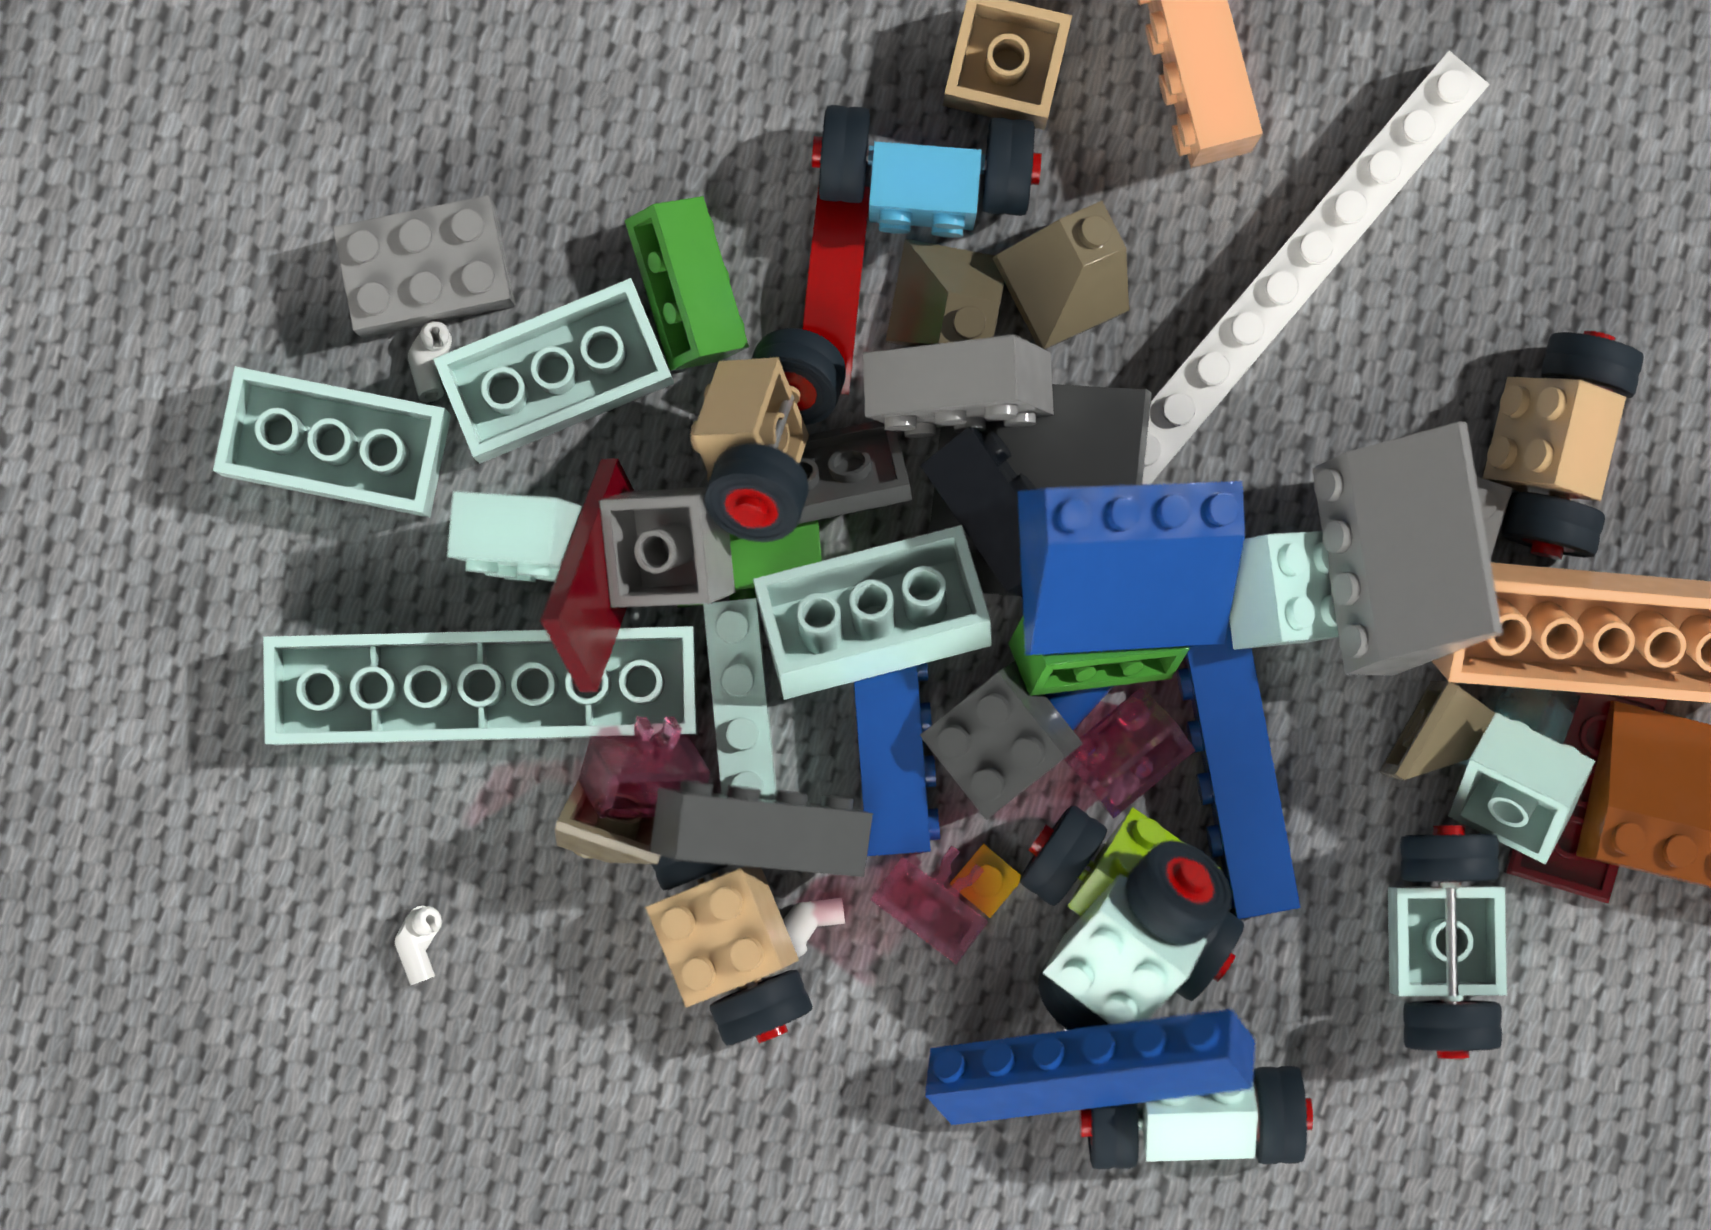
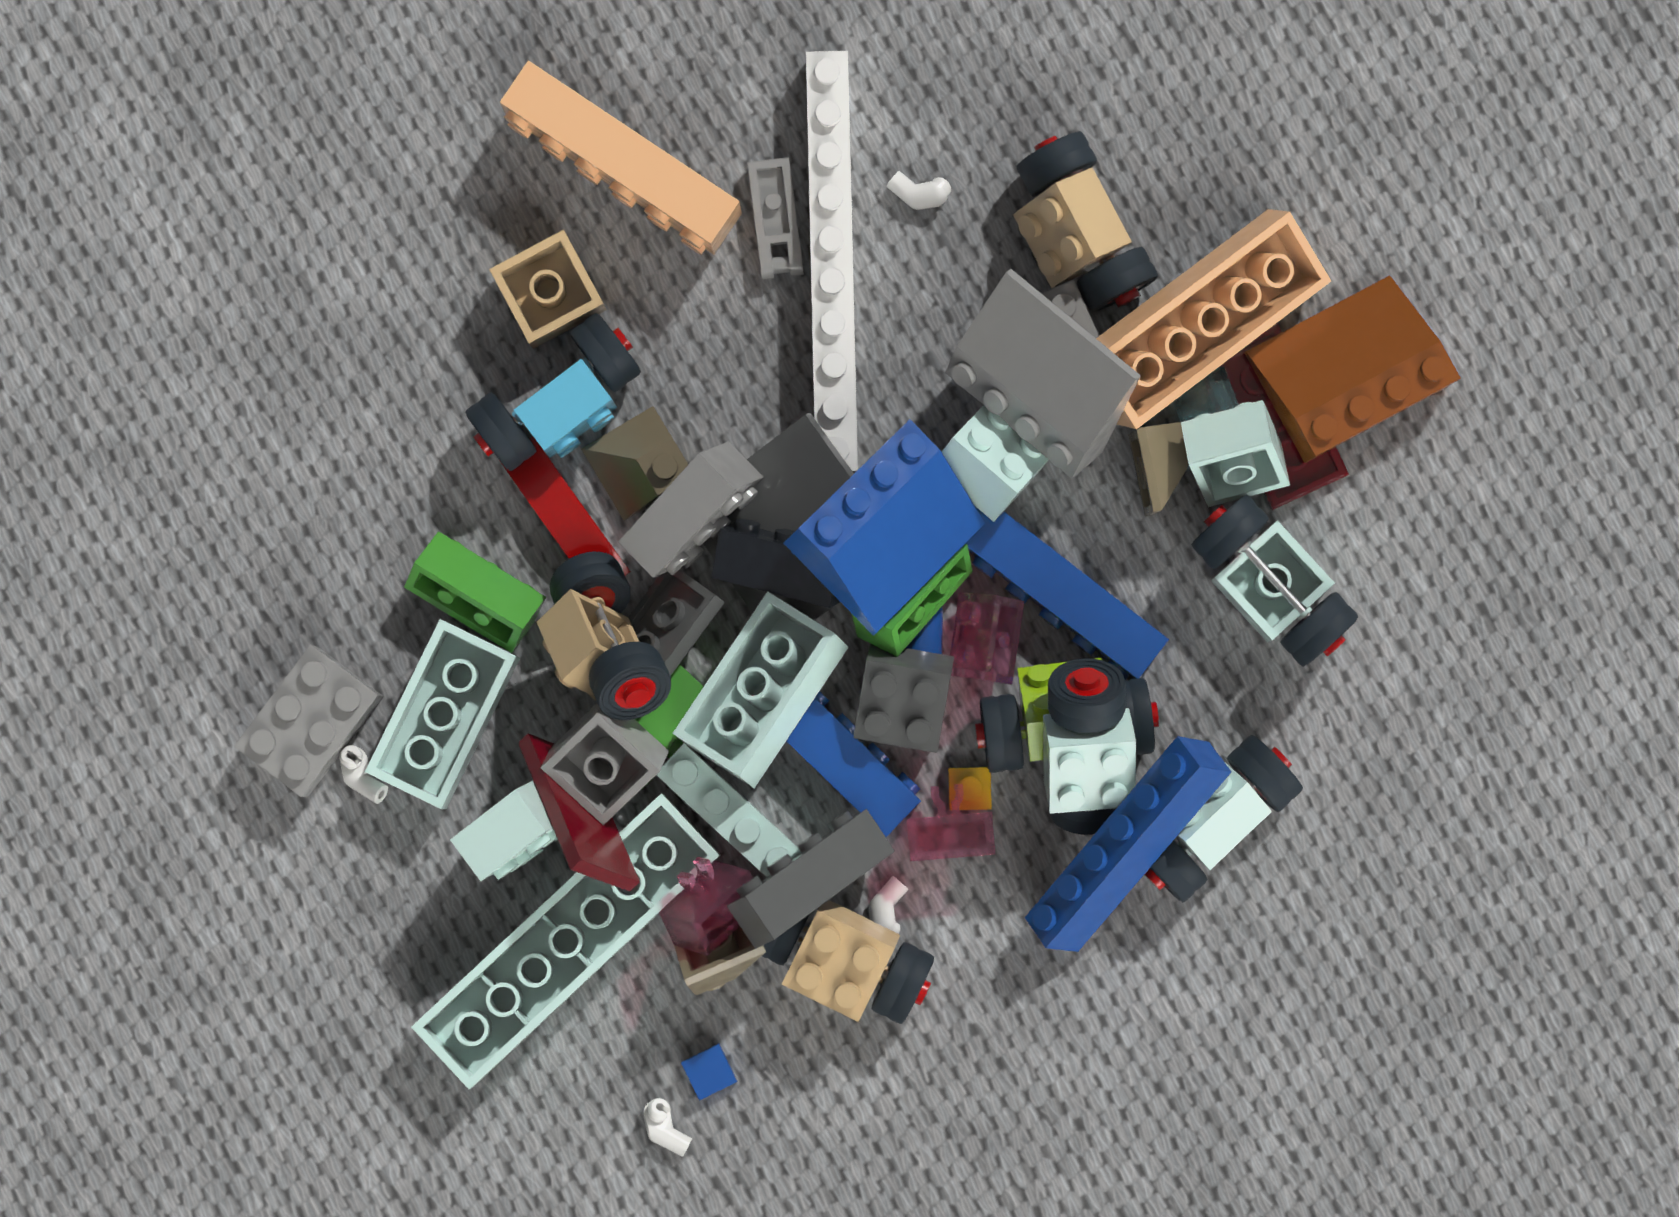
camera: 35 degrees left, 0 degrees up
(332, 442) = (347, 874): light aqua brick -> none
(506, 927) = (709, 1071): none -> blue tile
(1068, 275) = (698, 386): dark tan slope -> none
(1281, 181) = (775, 216): none -> light grey plate
(1436, 283) = (921, 195): none -> white arm

